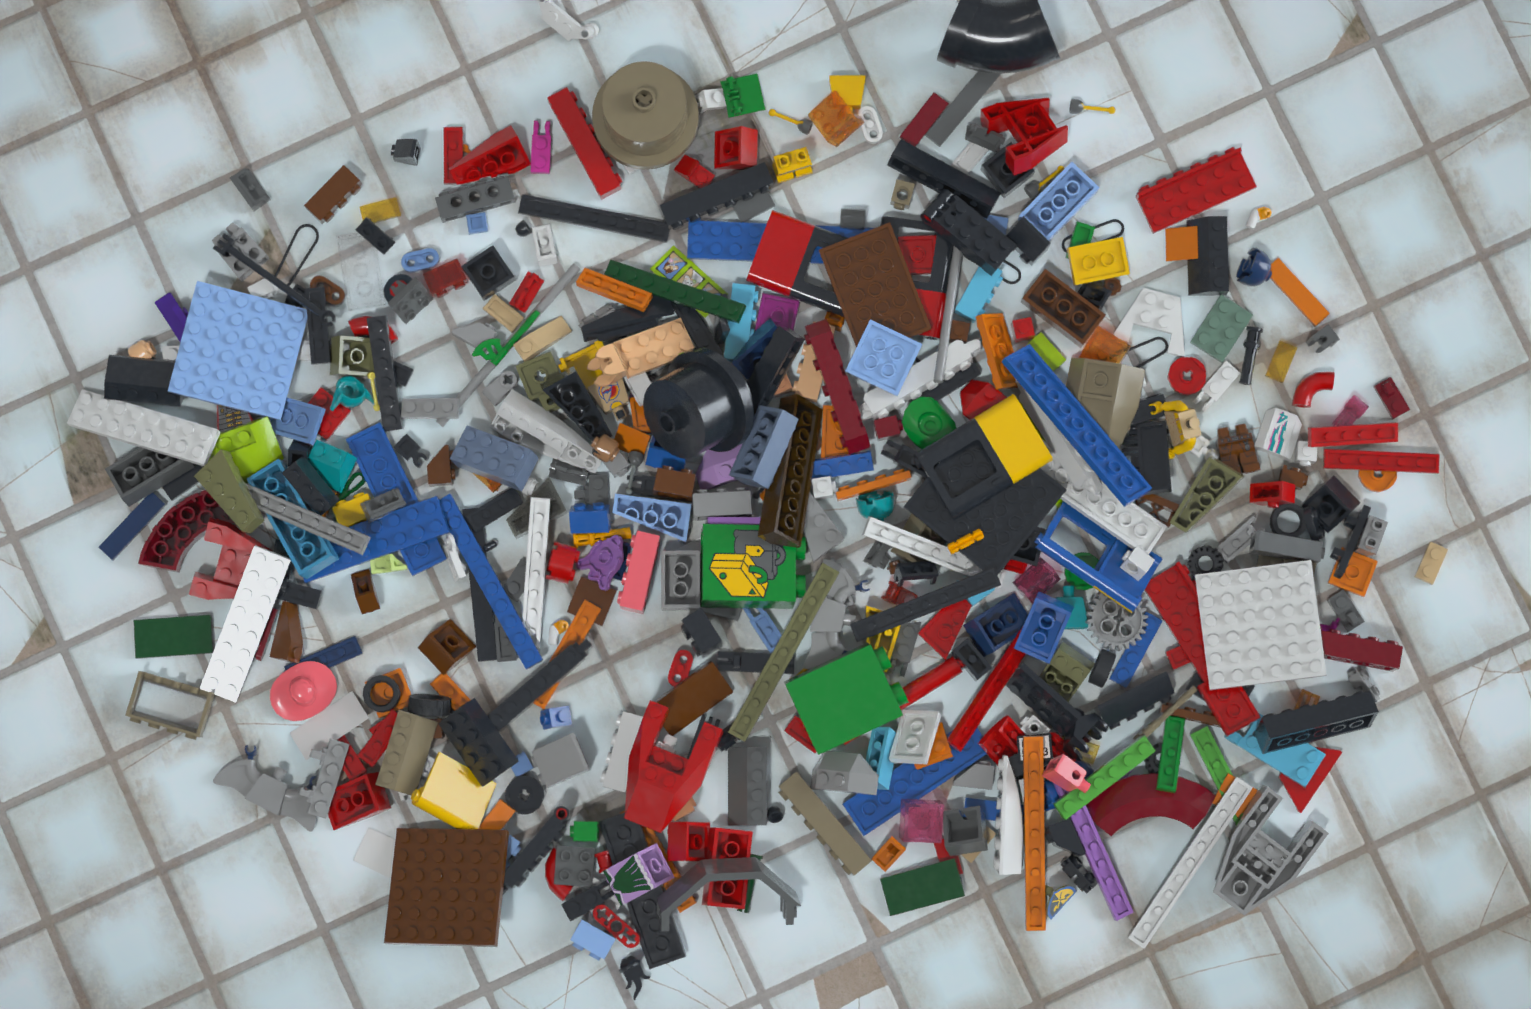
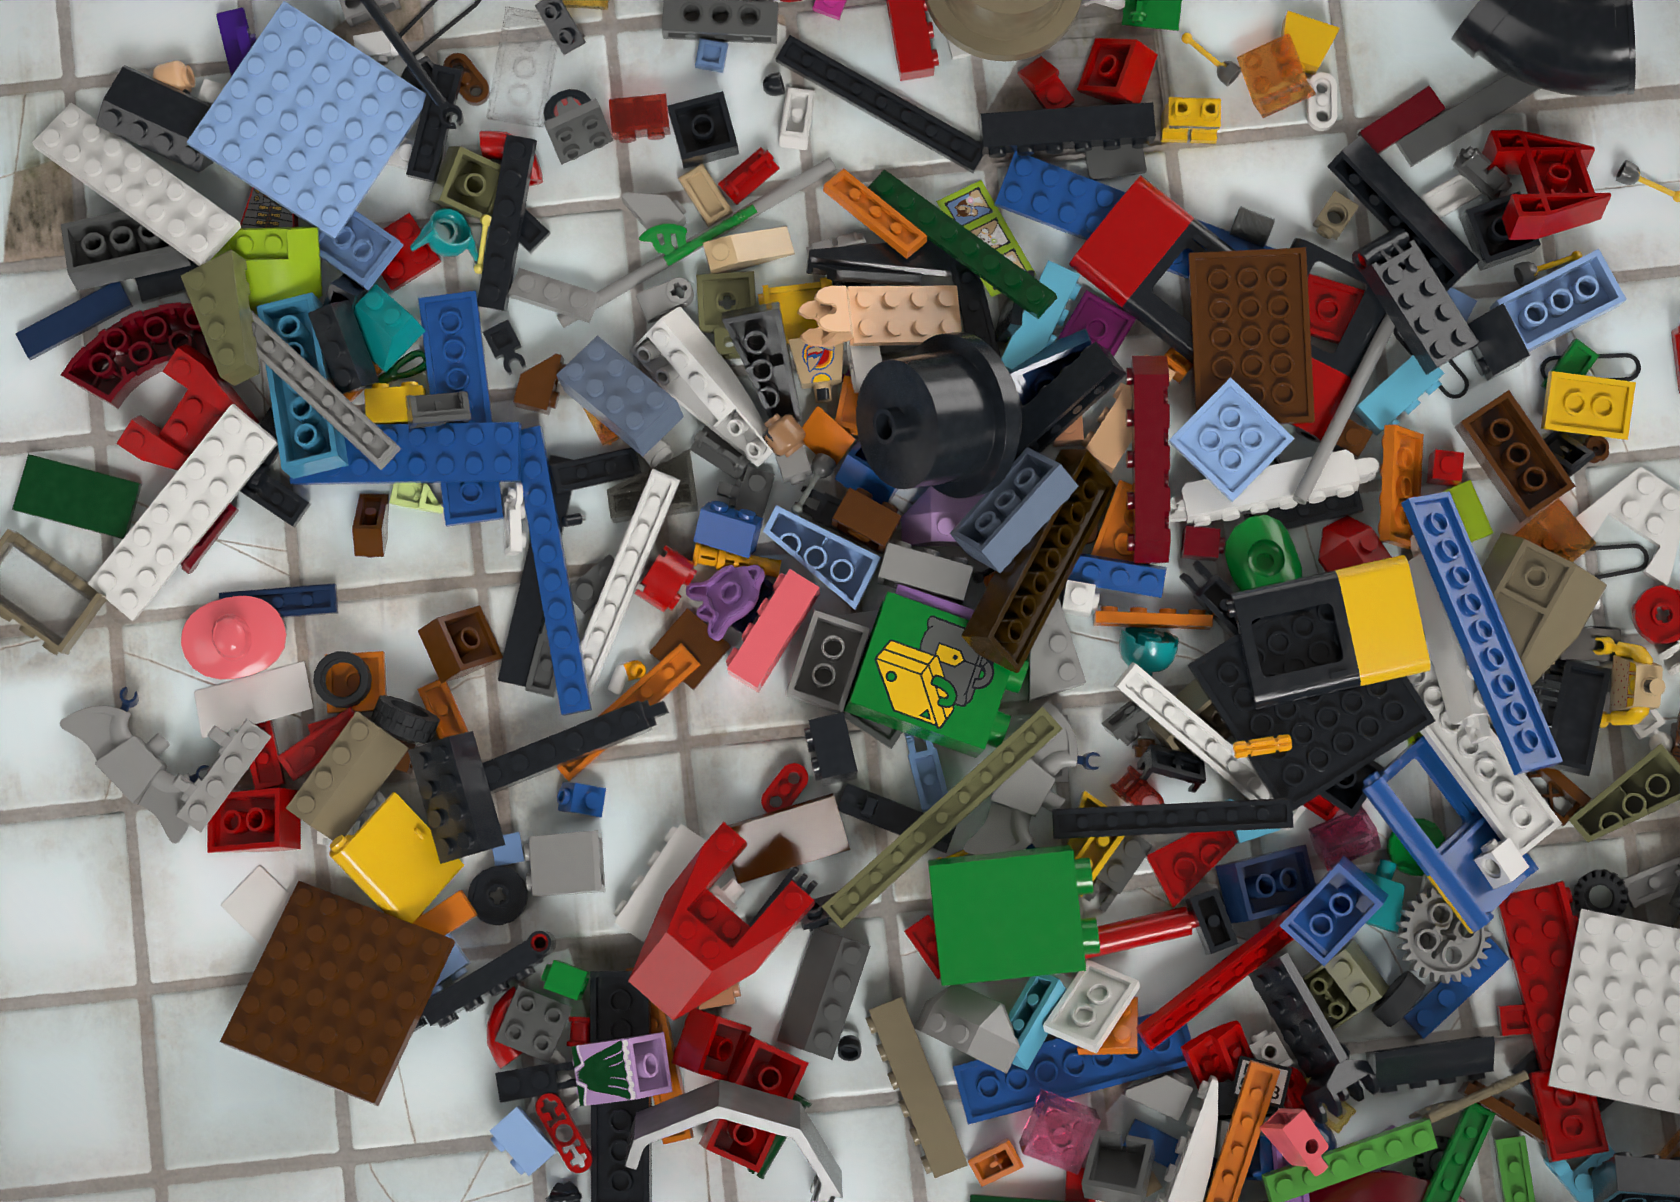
camera: 20 degrees right, 0 degrees up
(288, 637) = (239, 550): reddish brown slope -> none
(420, 260) = (613, 79): medium blue plate -> none

